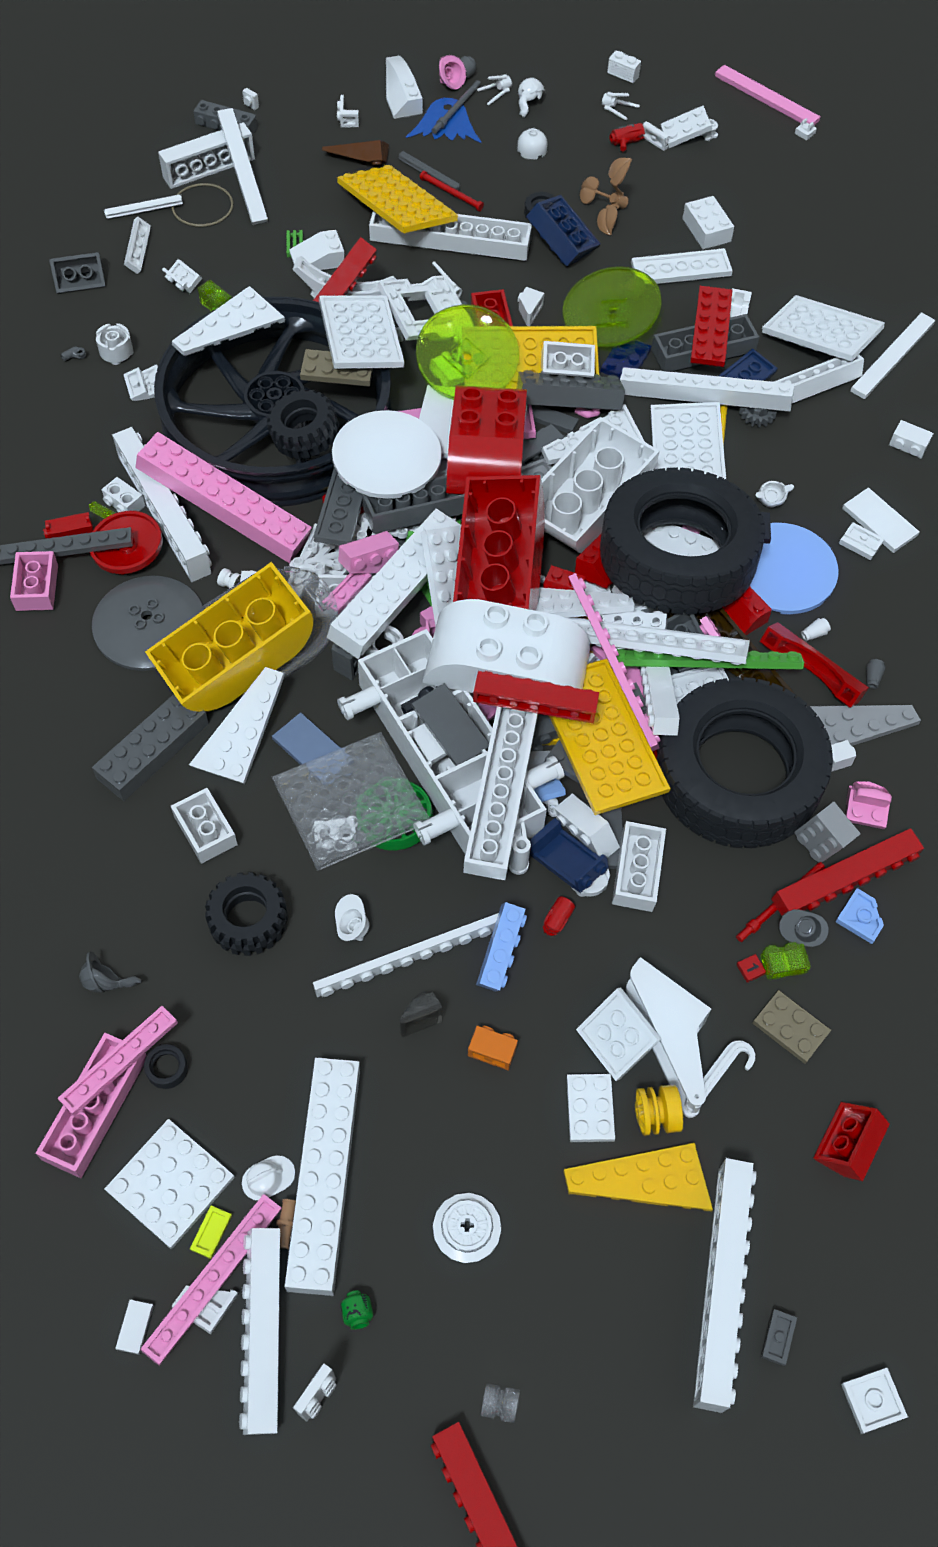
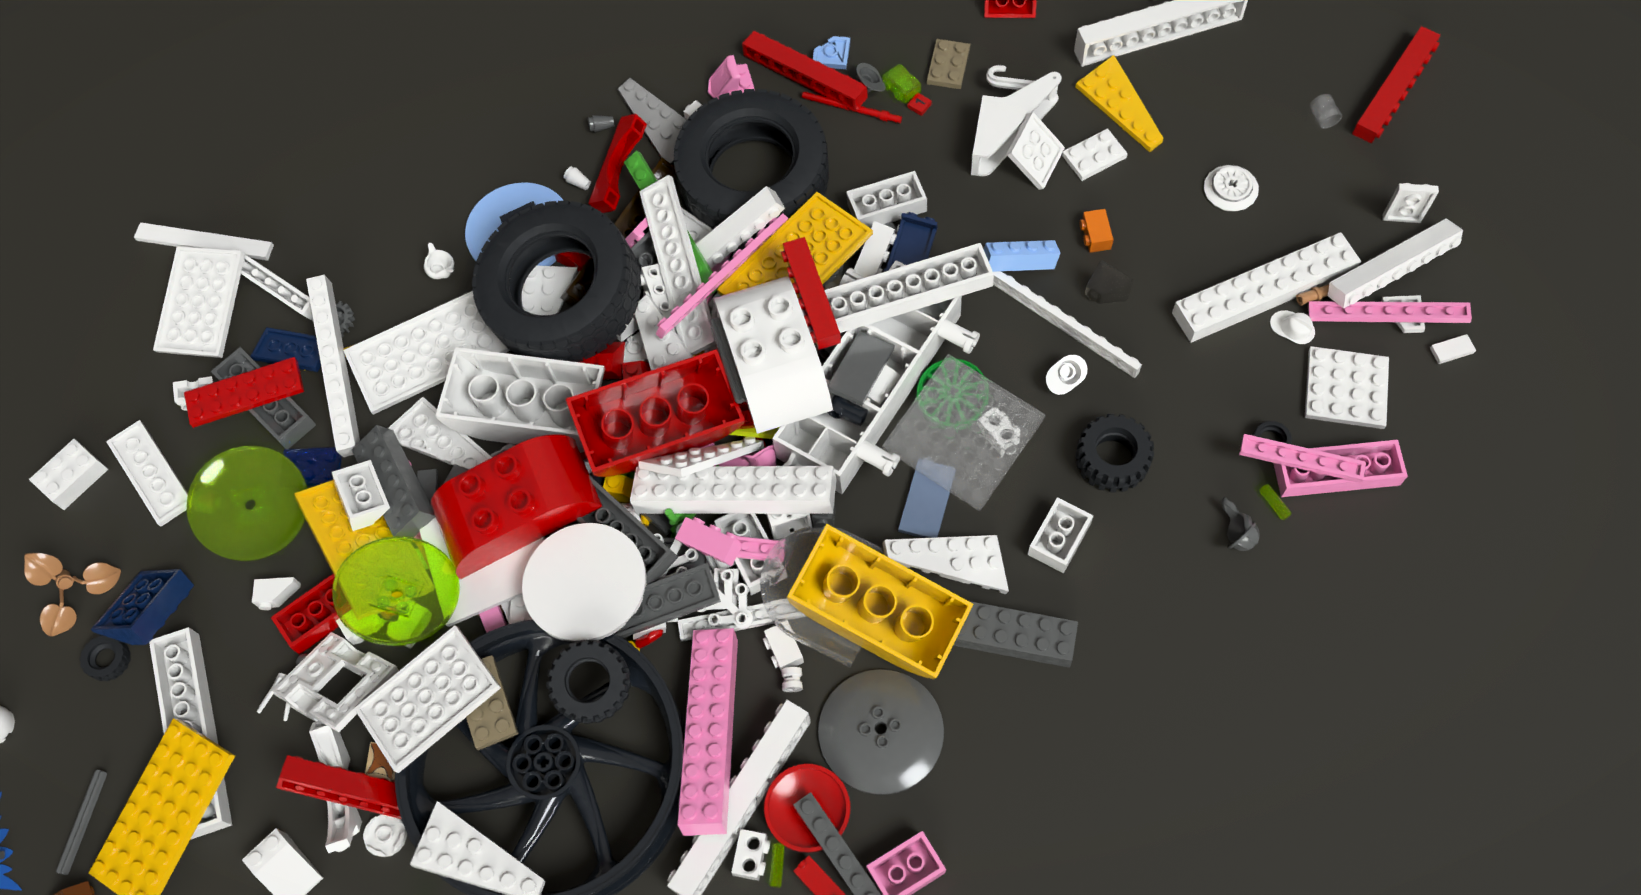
camera: 110 degrees left, 5 degrees up
(117, 1031) = (1275, 502): none -> clear neon green axle
(211, 1232) = (1357, 340): neon yellow tile -> none
(356, 1310) = (1336, 218): green head -> none
(478, 205) = (100, 800): red bar -> none
(558, 916) = (962, 238): red arm -> none
(655, 1110) = (1072, 105): yellow wheel -> none
(827, 833) = (787, 76): light grey brick -> none
(861, 541) = (458, 182): white plate -> none
(881, 519) = (424, 179): white tile -> none
(911, 439) = (314, 187): white brick -> none

